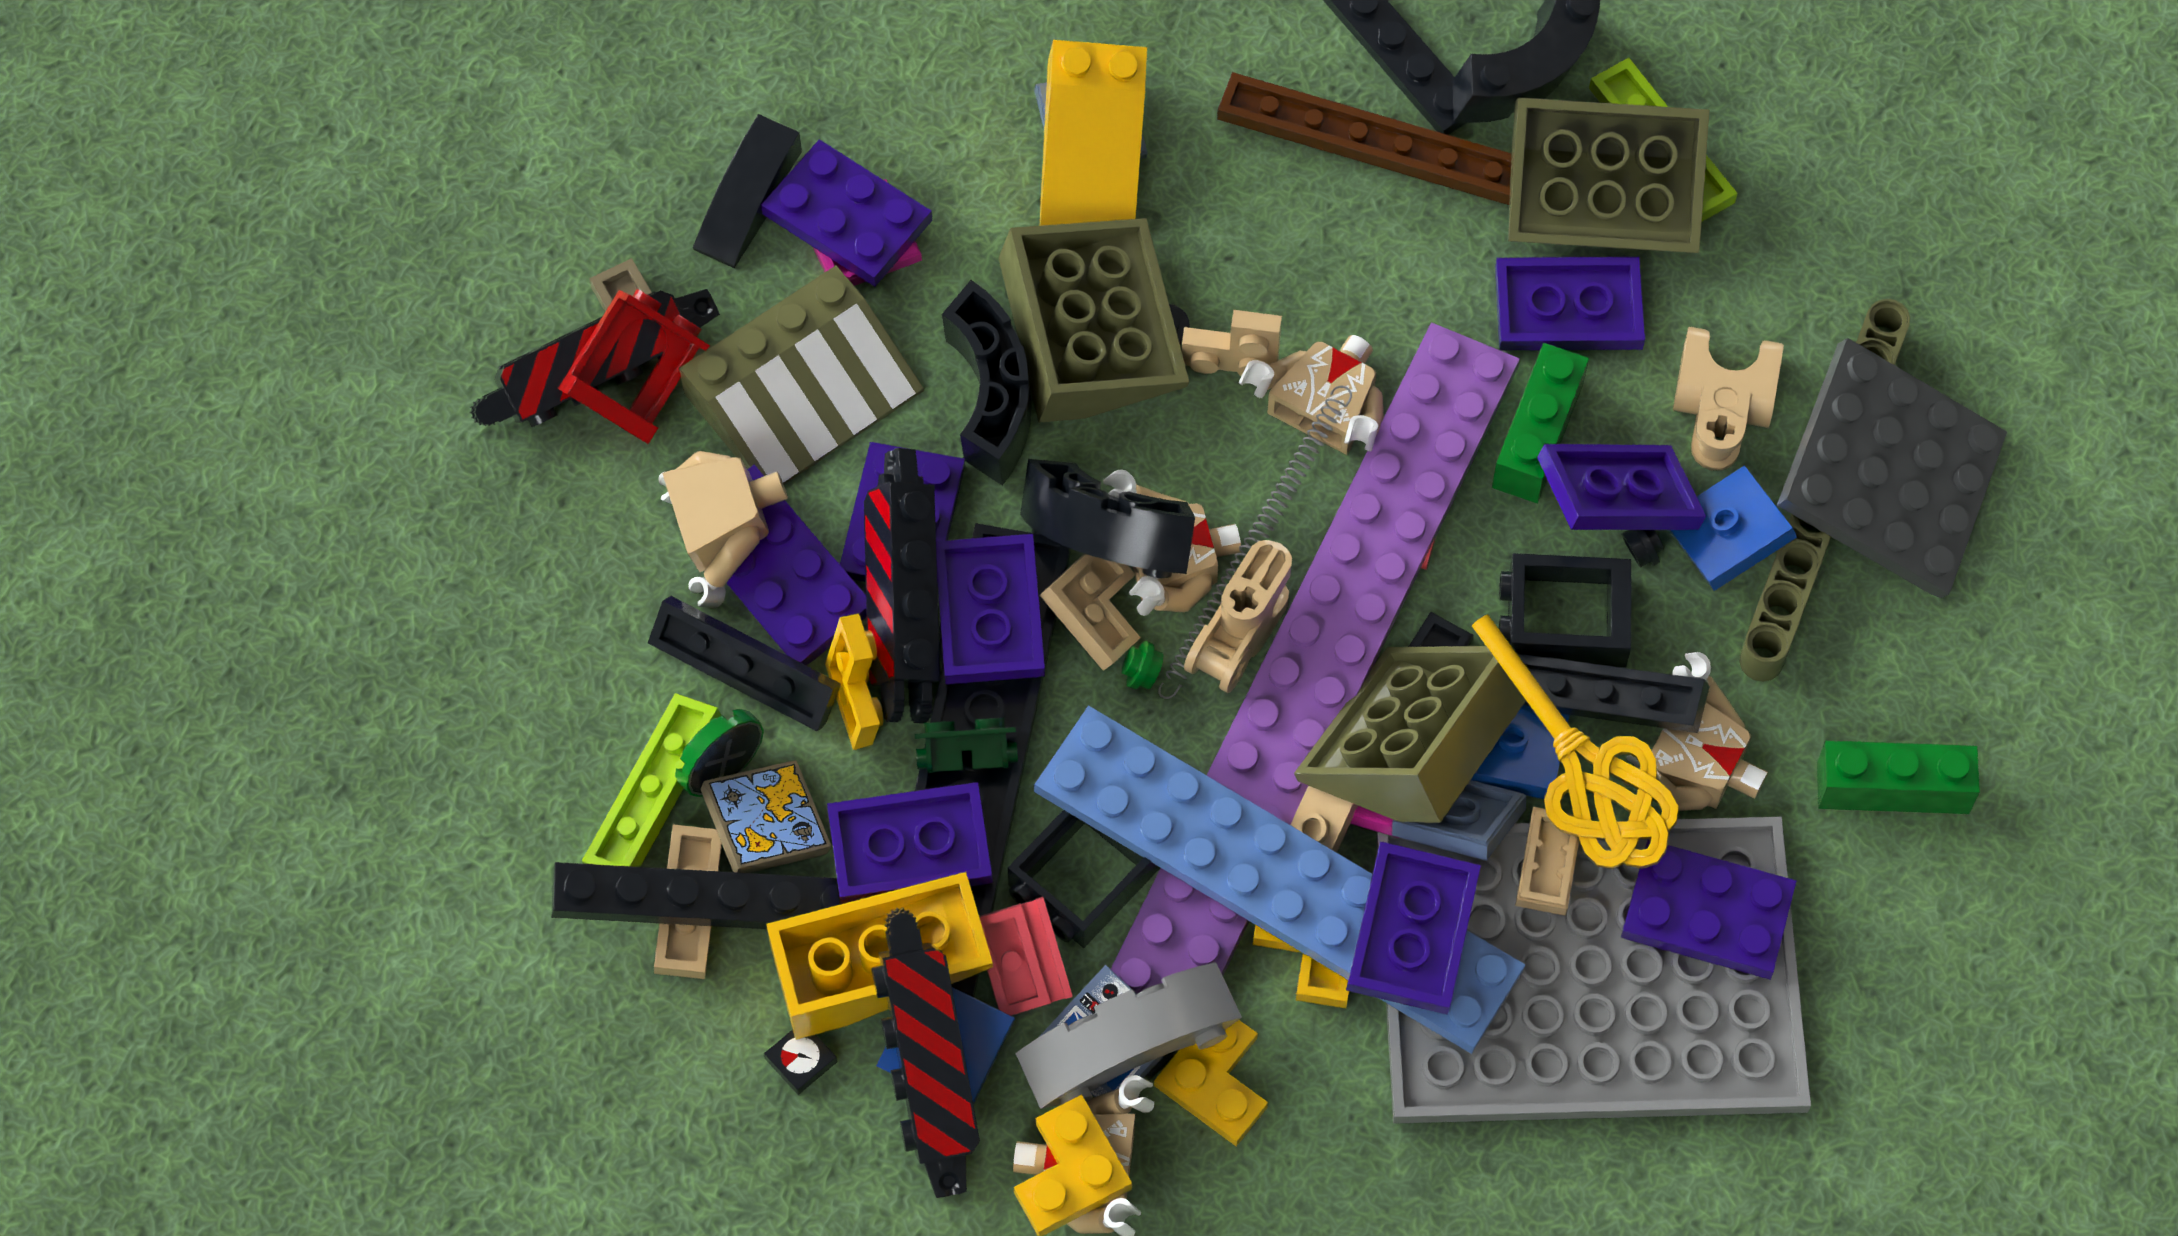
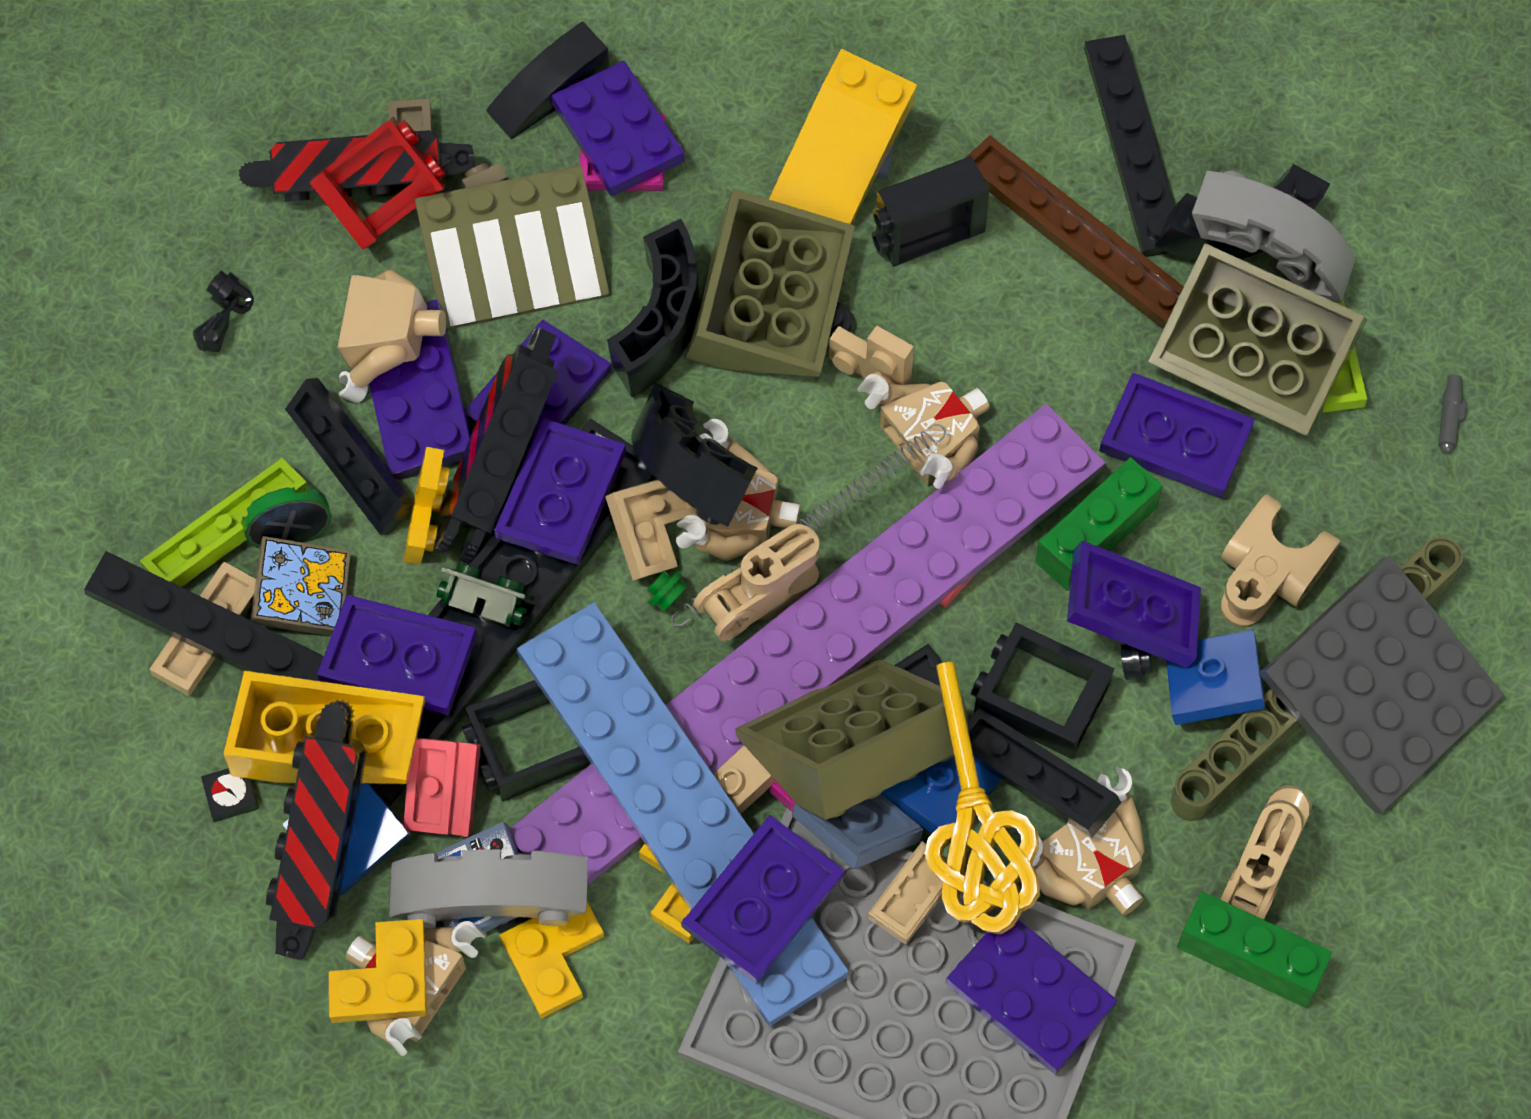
camera: 25 degrees right, 0 degrees up
(513, 544) = (211, 333): none -> black piece
(734, 318) = (483, 175): none -> dark tan plate
(1218, 173) = (930, 211): none -> black window
(1580, 50) = (1266, 219): none -> light grey brick
(1822, 175) = (1452, 413): none -> dark grey piece
(1868, 674) = (1274, 835): none -> tan piece

